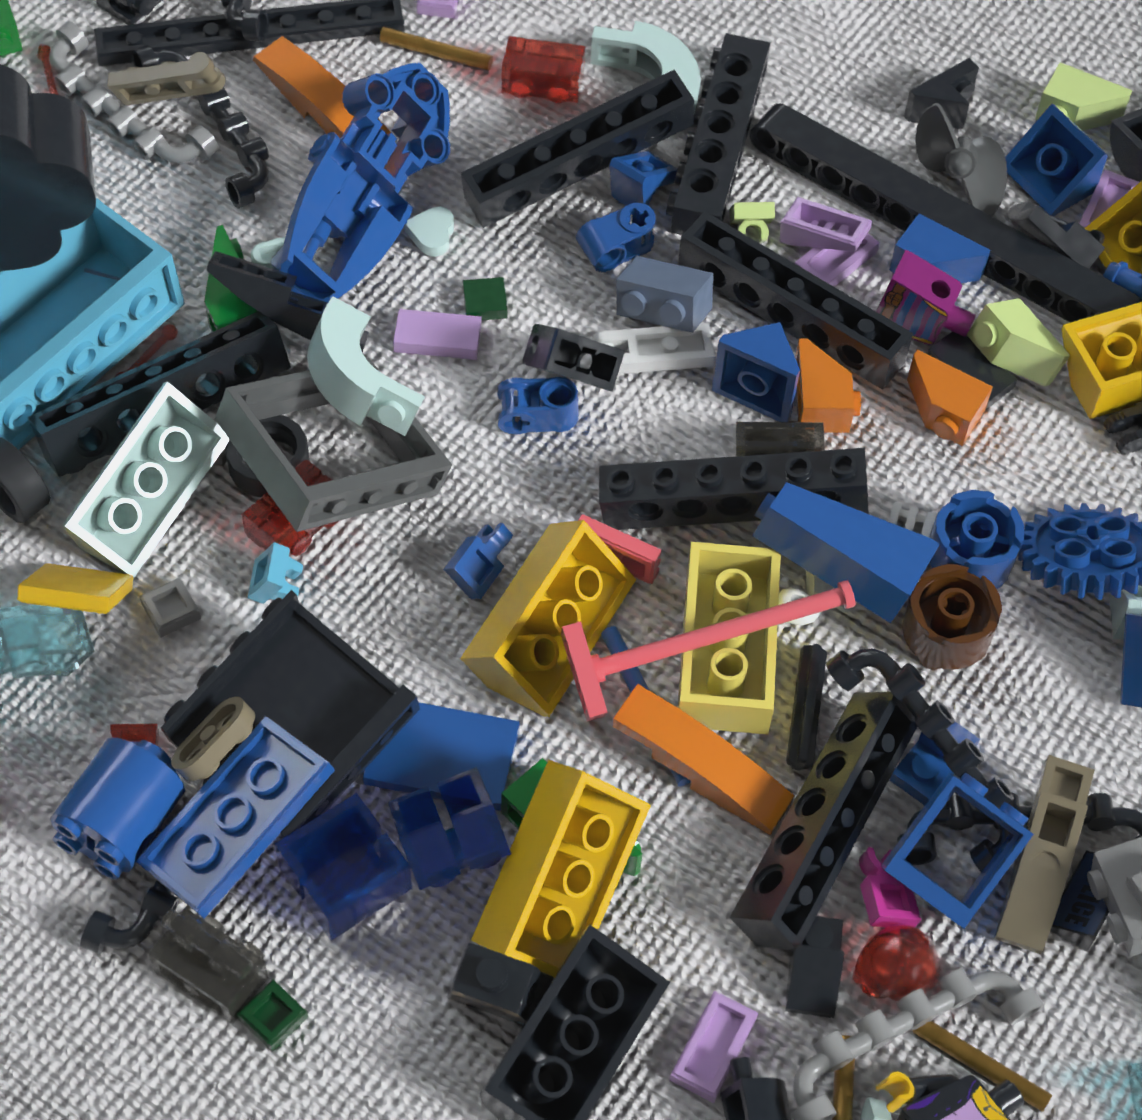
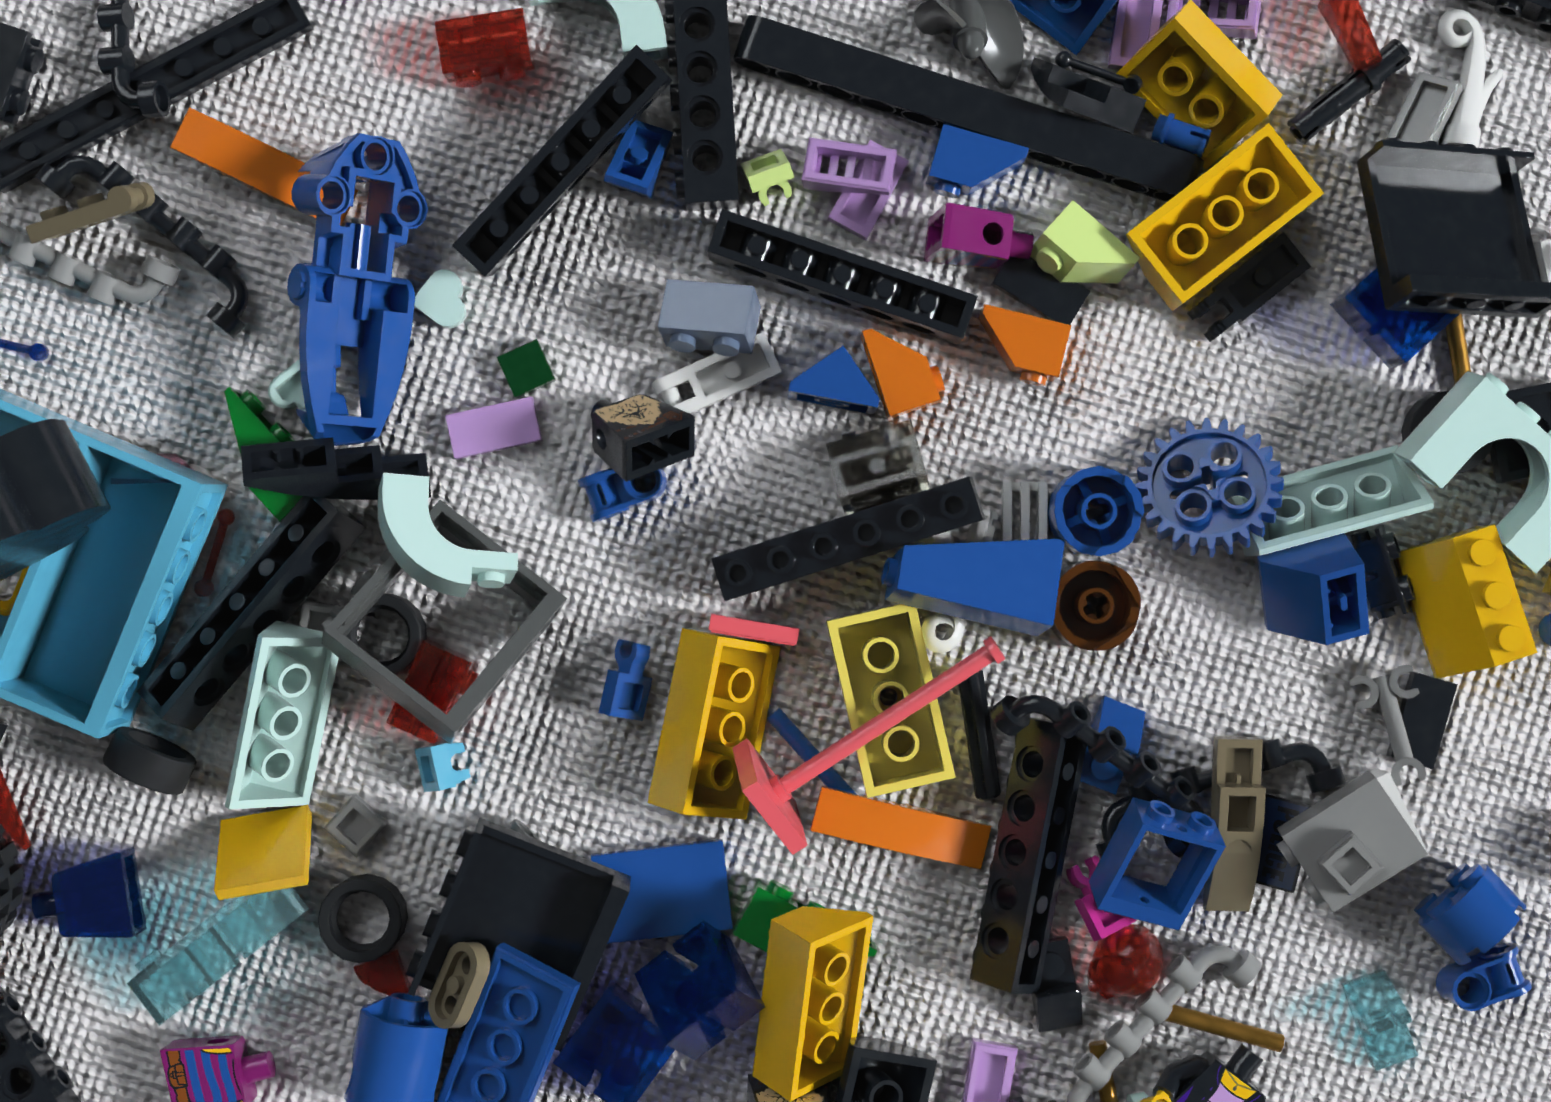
camera: 15 degrees left, 30 degrees up
(131, 653) = (328, 922): none -> black tyre
(436, 48) = (357, 47): pearl gold bar -> none
(614, 240) = (629, 257): blue piece -> none

